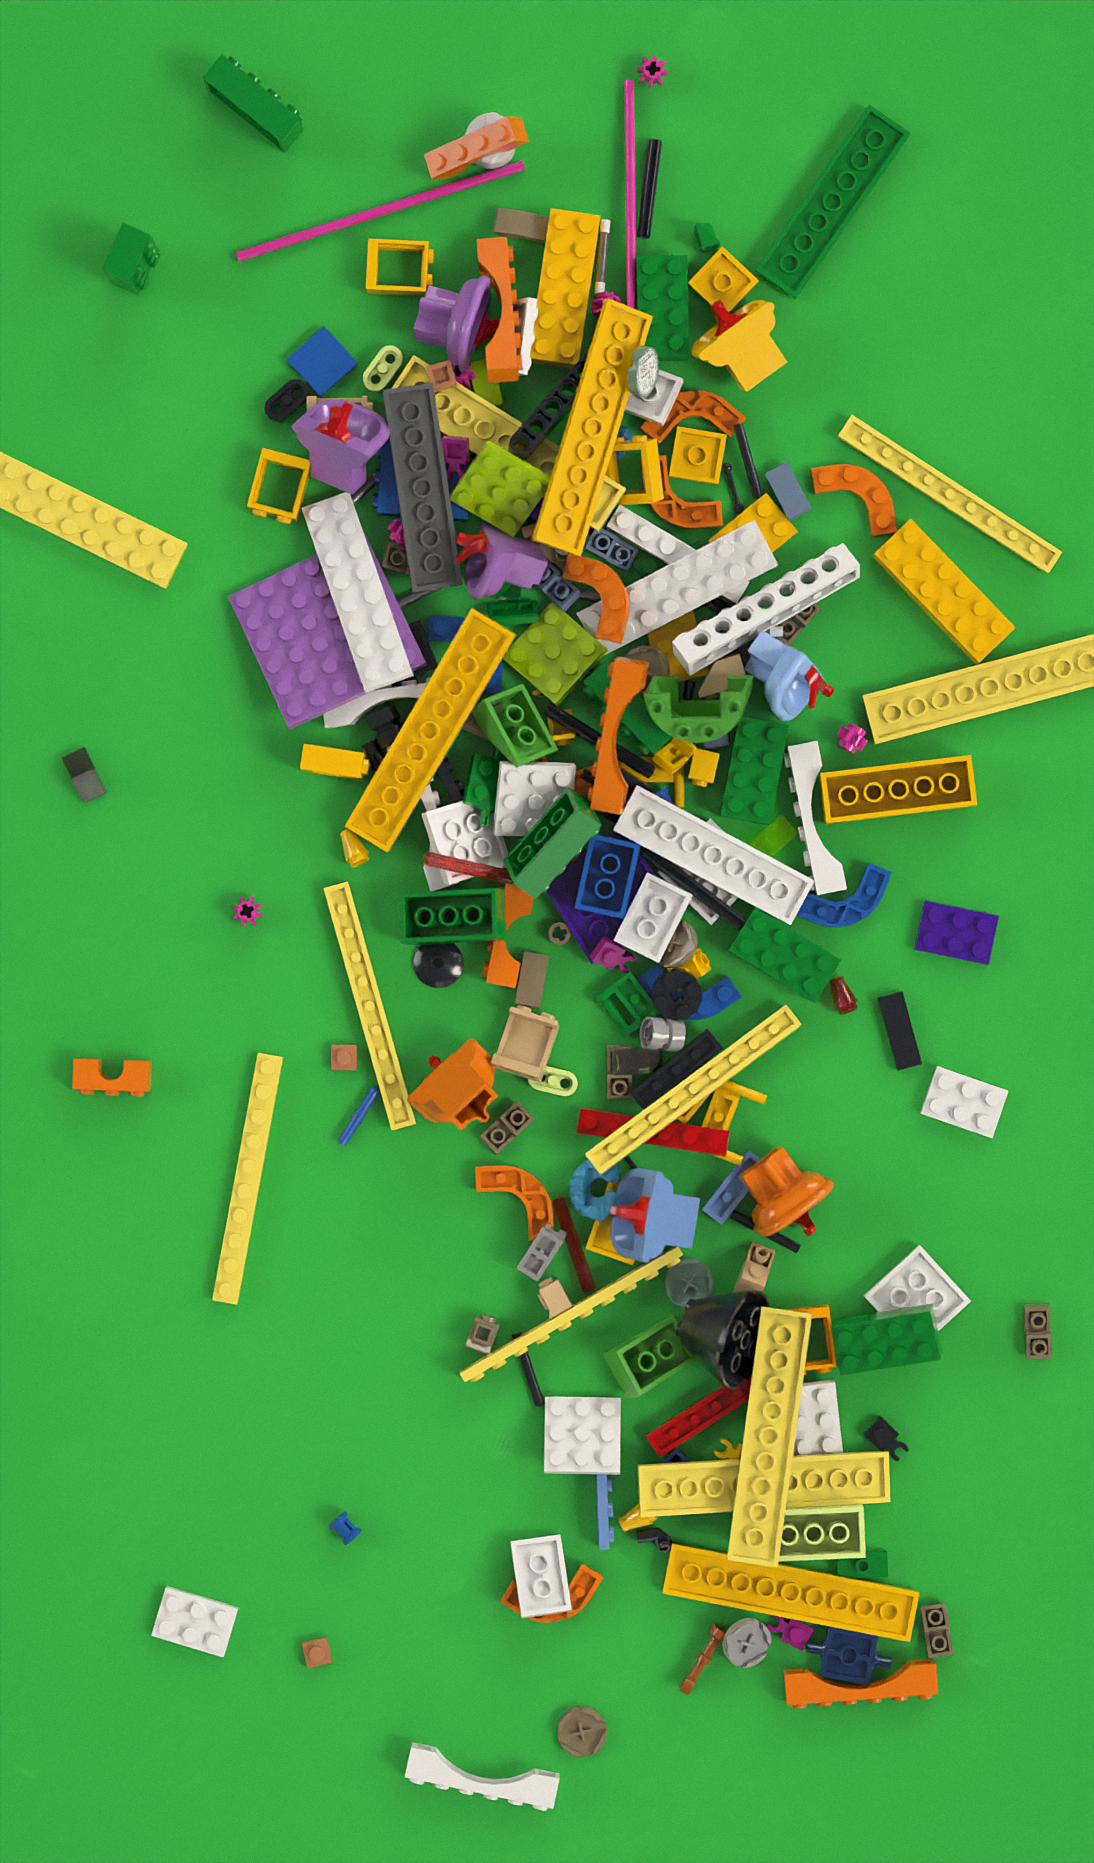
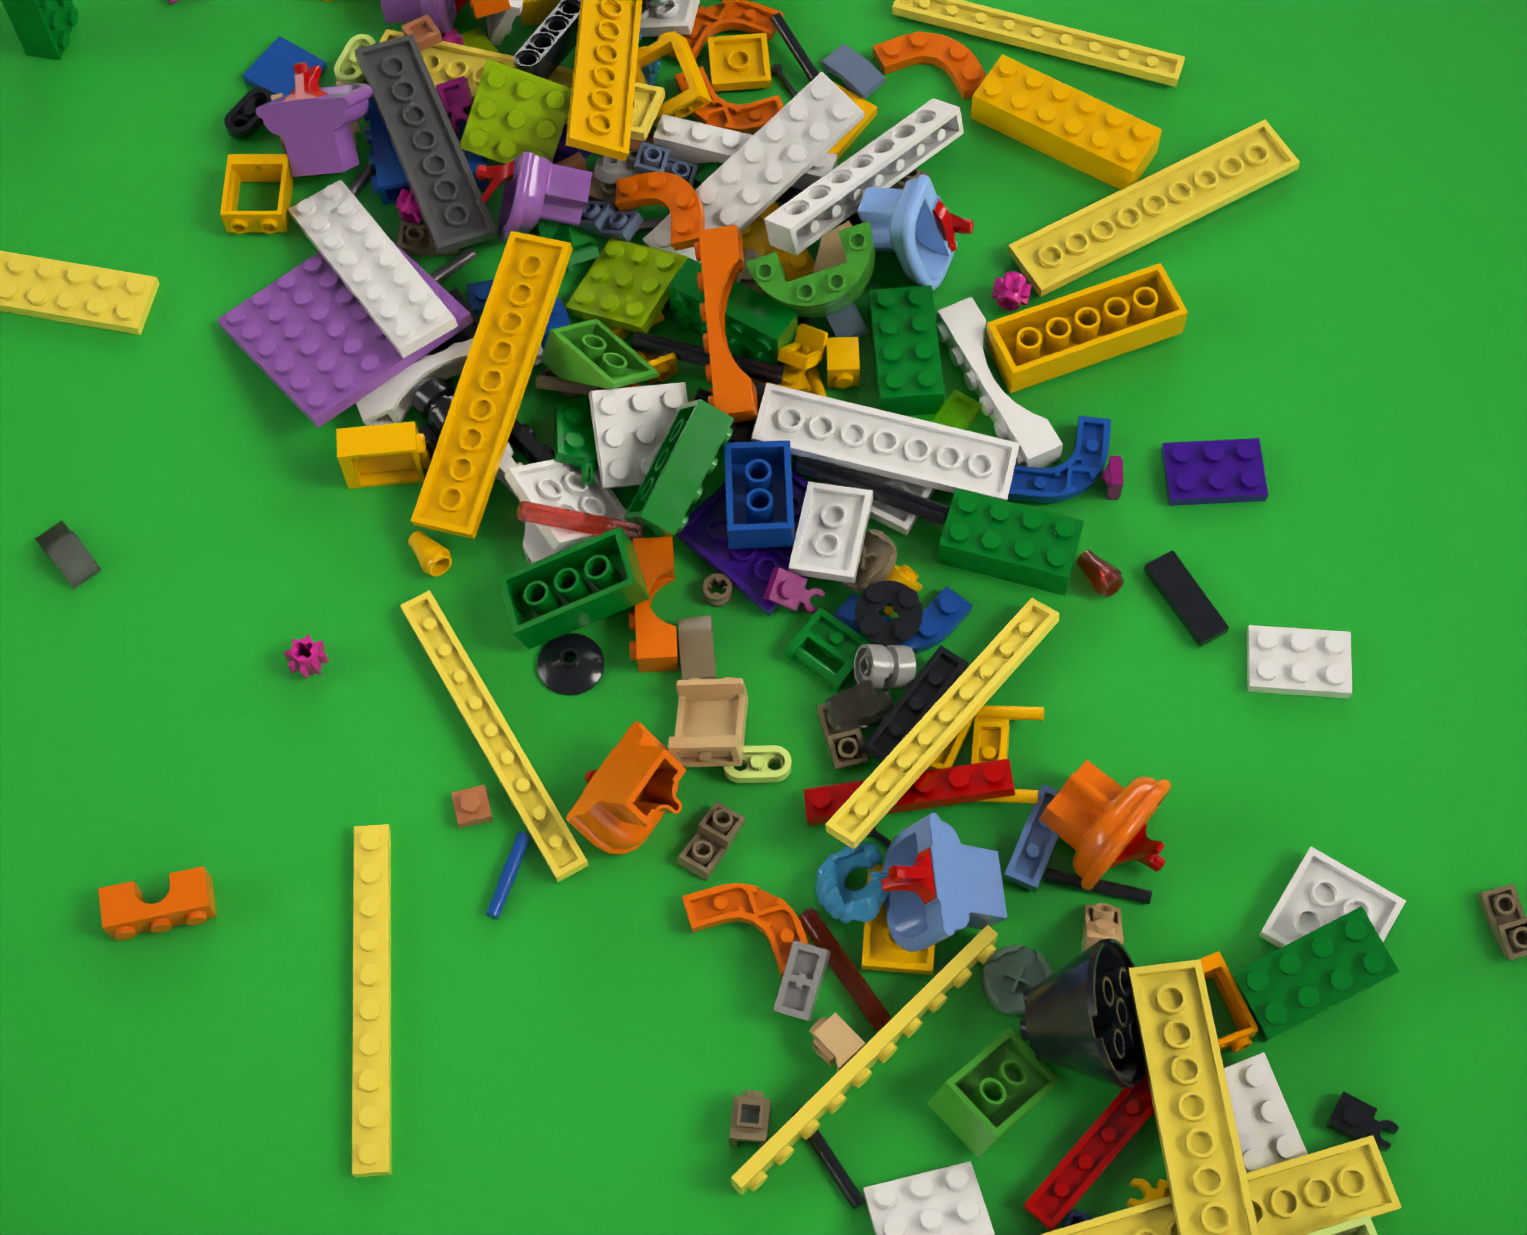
camera: 10 degrees left, 25 degrees down
(877, 921) = (1114, 477): none -> magenta tile

